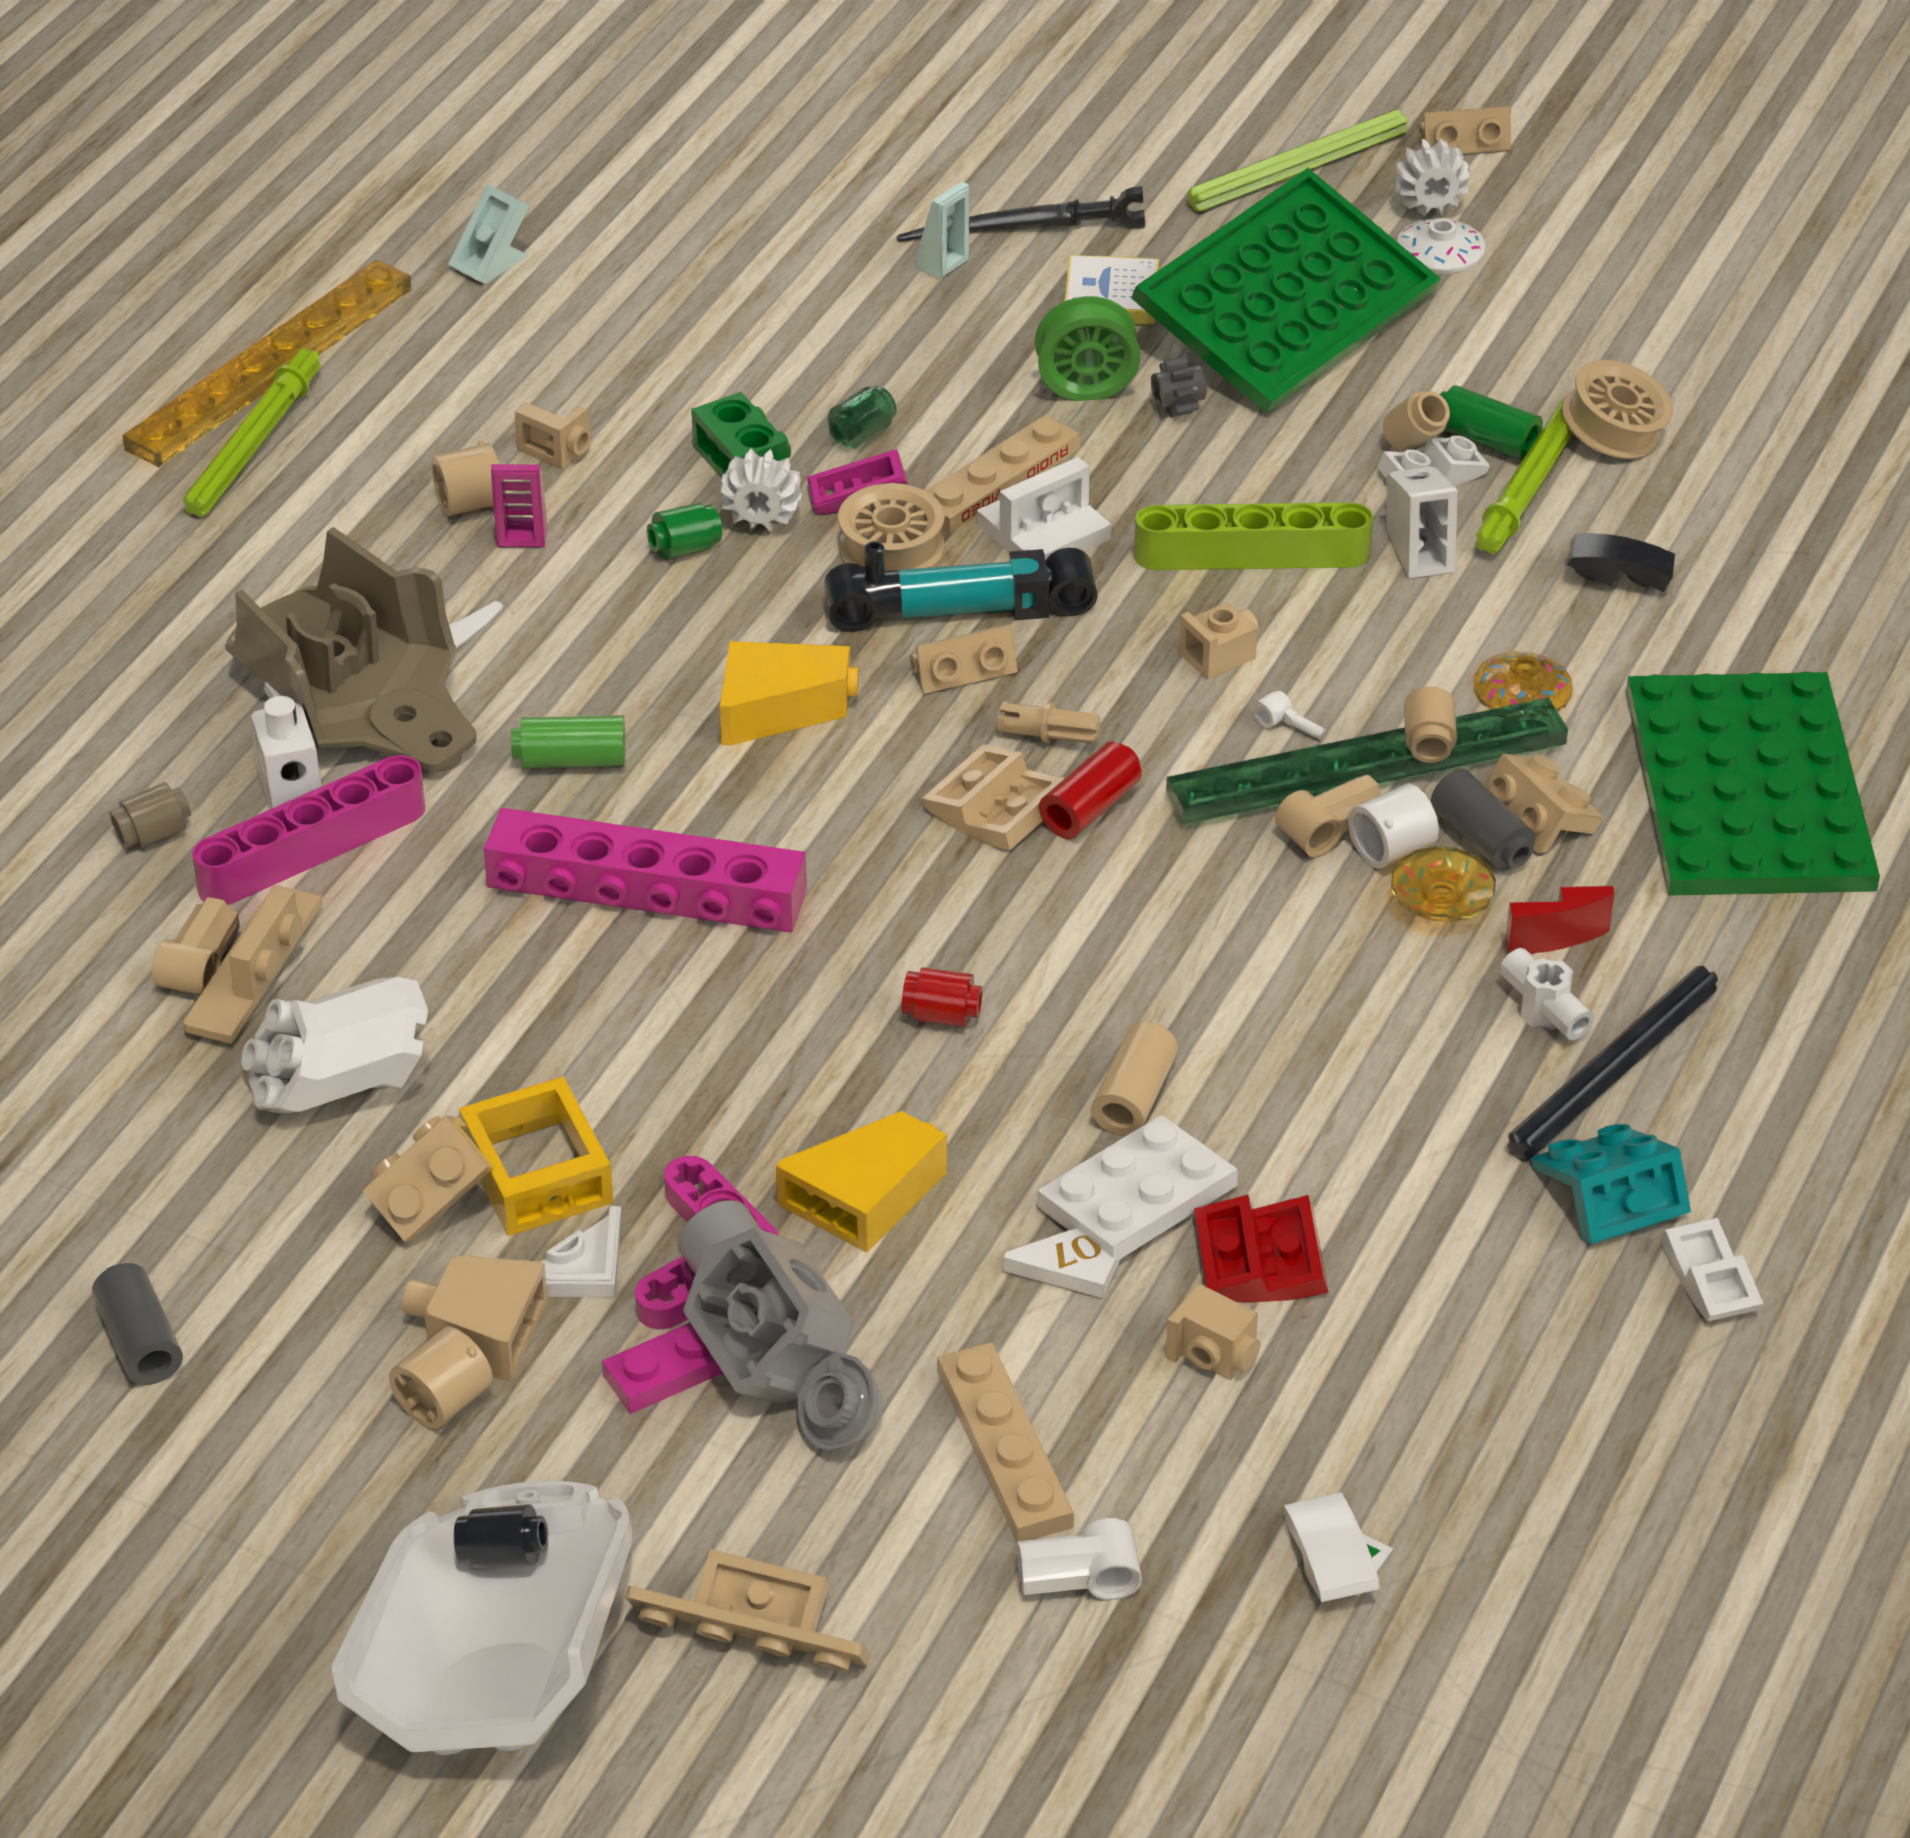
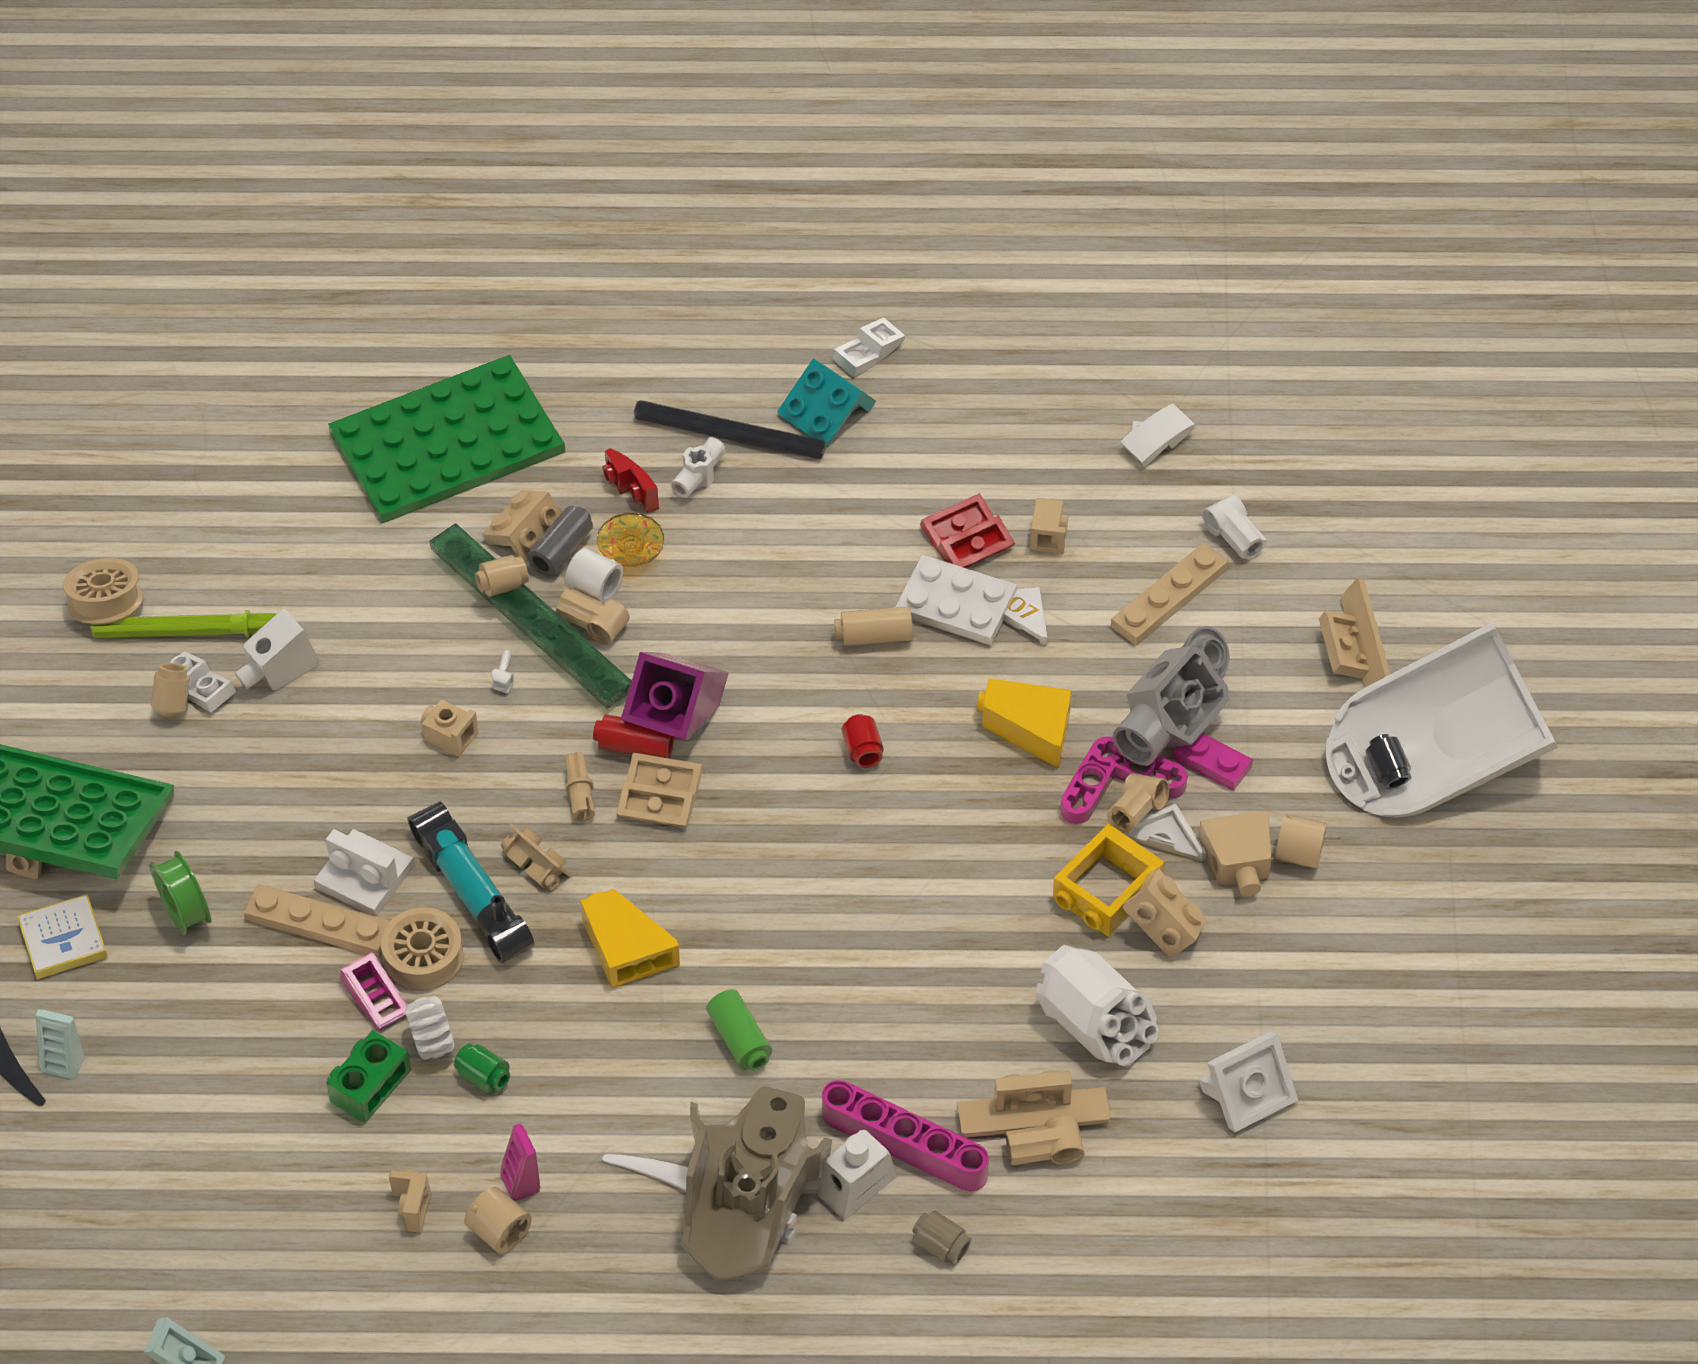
camera: 115 degrees left, 10 degrees up
(117, 1161) = (1250, 1081): none -> white bracket
(137, 1323) = (1352, 1010): dark grey brick -> none
(640, 1237) = (1139, 796): none -> tan piece
(646, 869) = (853, 1013): dark pink brick -> none
(861, 416) = (300, 1017): clear green brick -> none
(1127, 820) = (672, 694): none -> magenta slope
(1178, 386) = (182, 838): dark grey gear -> none
(1253, 536) = (333, 744): lime beam -> none
(1491, 422) = (141, 660): green brick -> none
(1522, 678) = (404, 582): clear yellow dish -> none
(1606, 555) = (263, 549): black slope -> none

